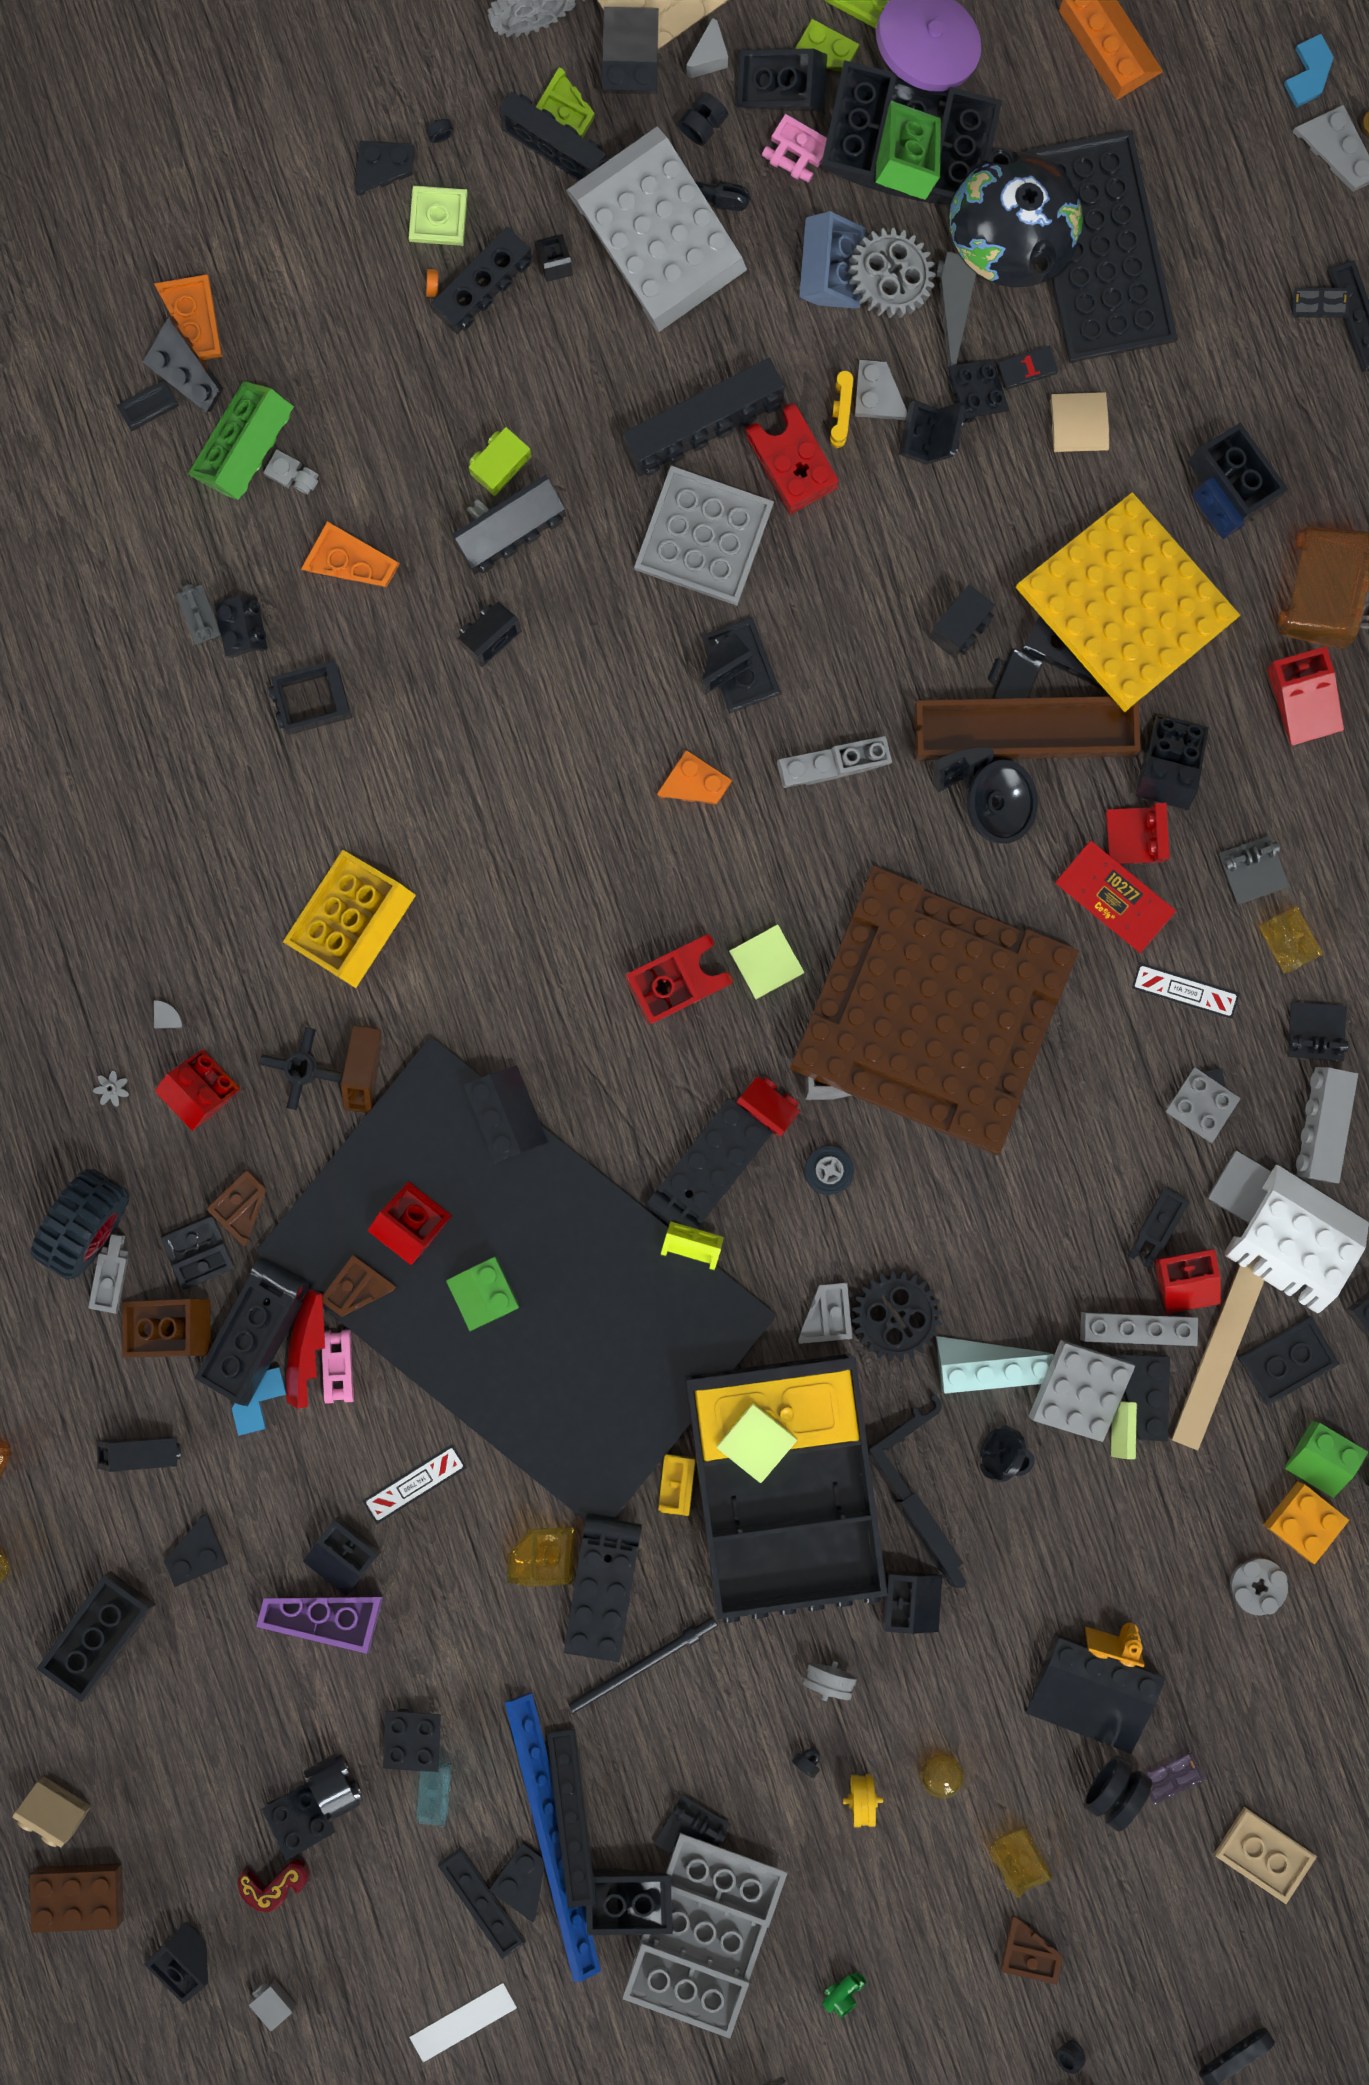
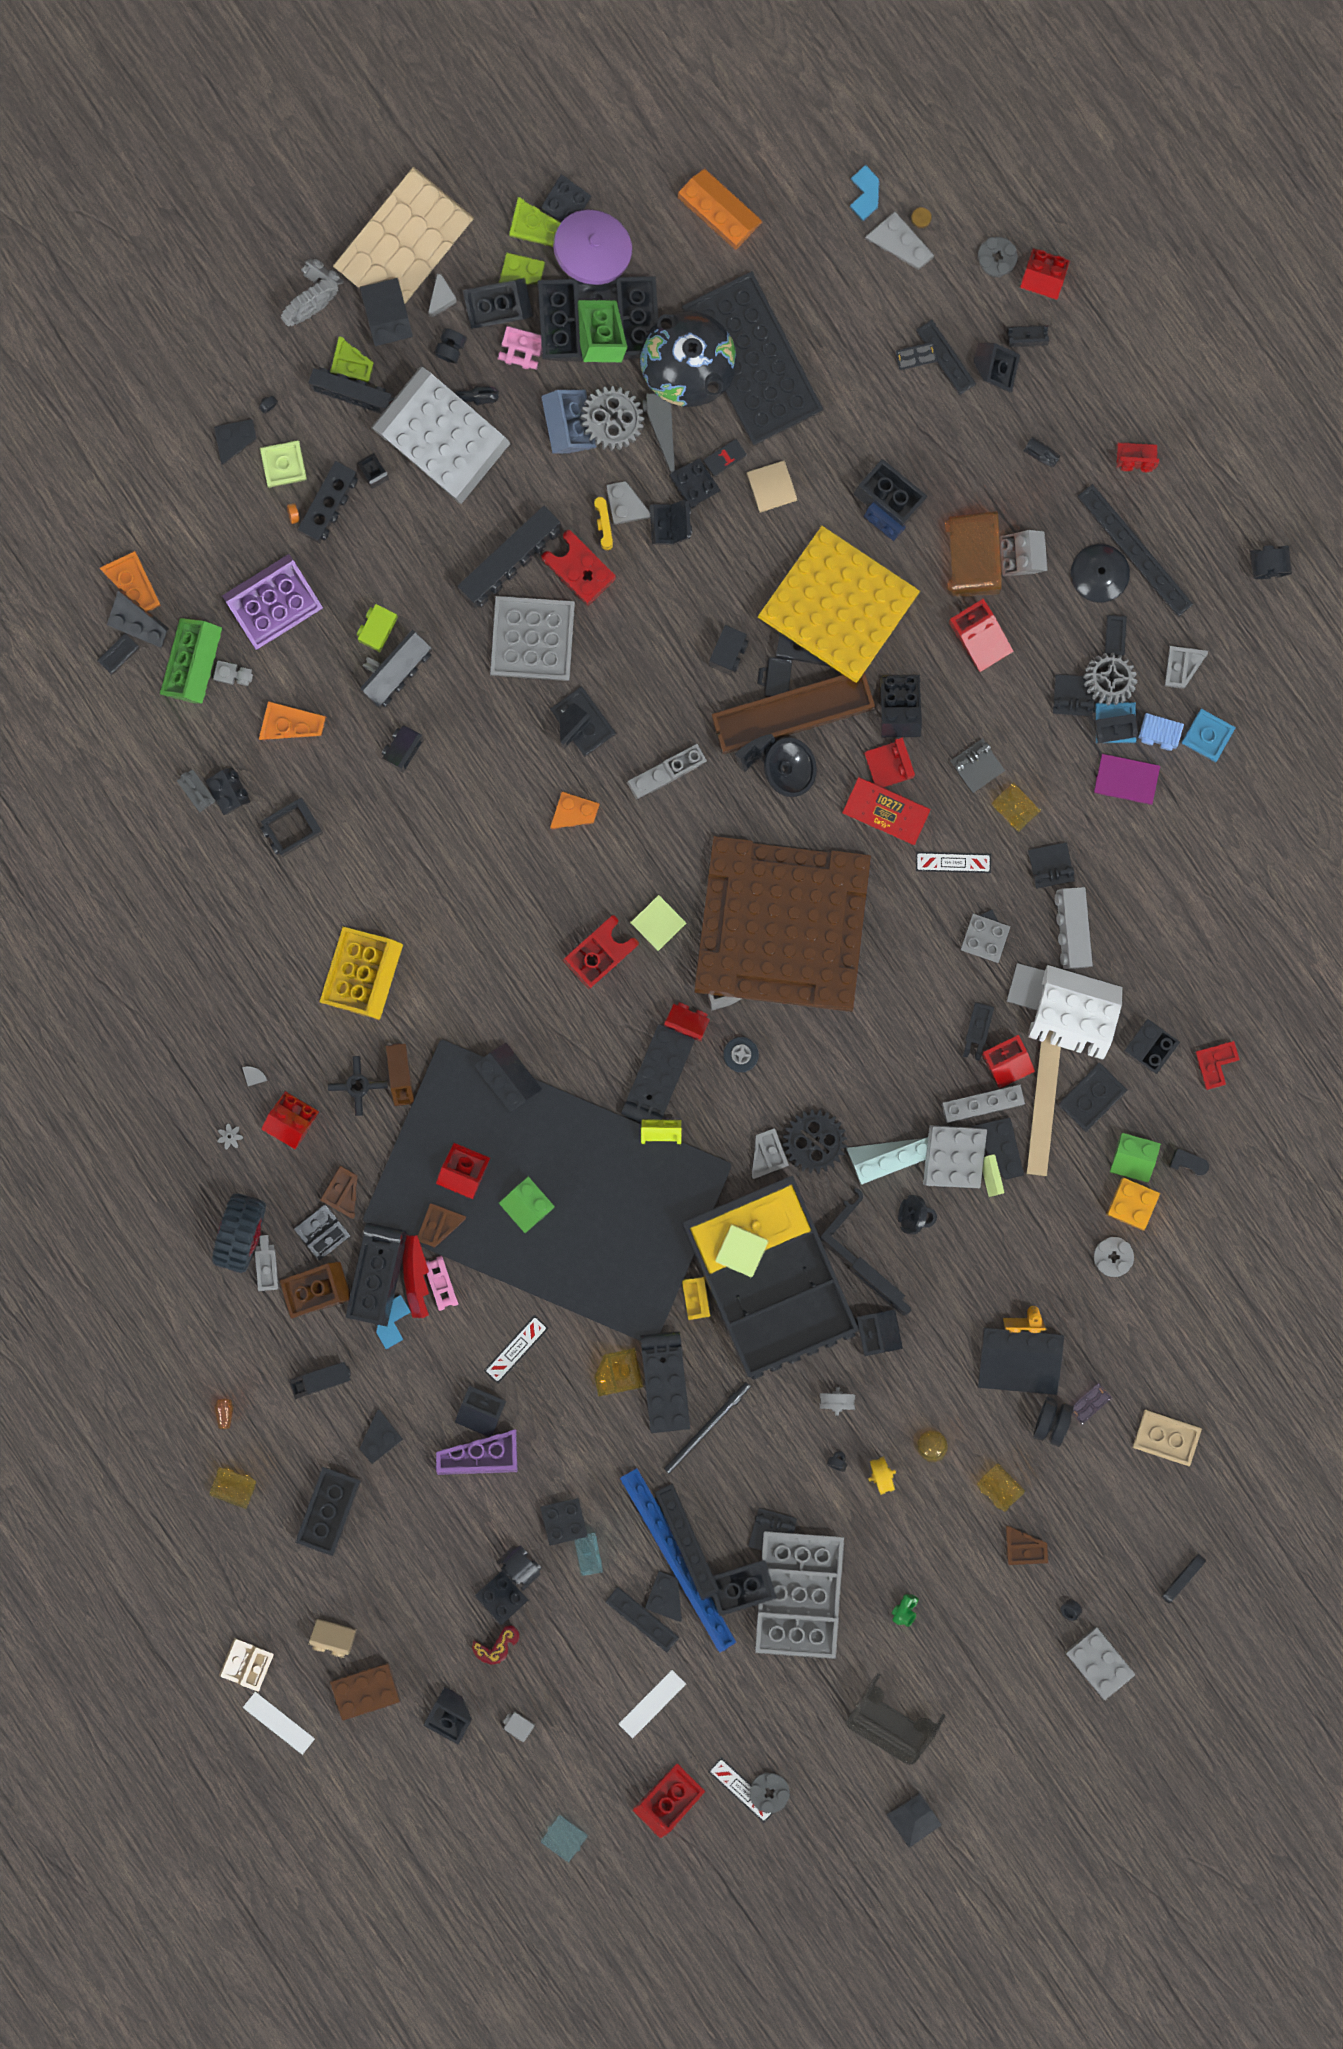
camera: 15 degrees left, 0 degrees up
(371, 392) = (272, 601): none -> medium lavender slope

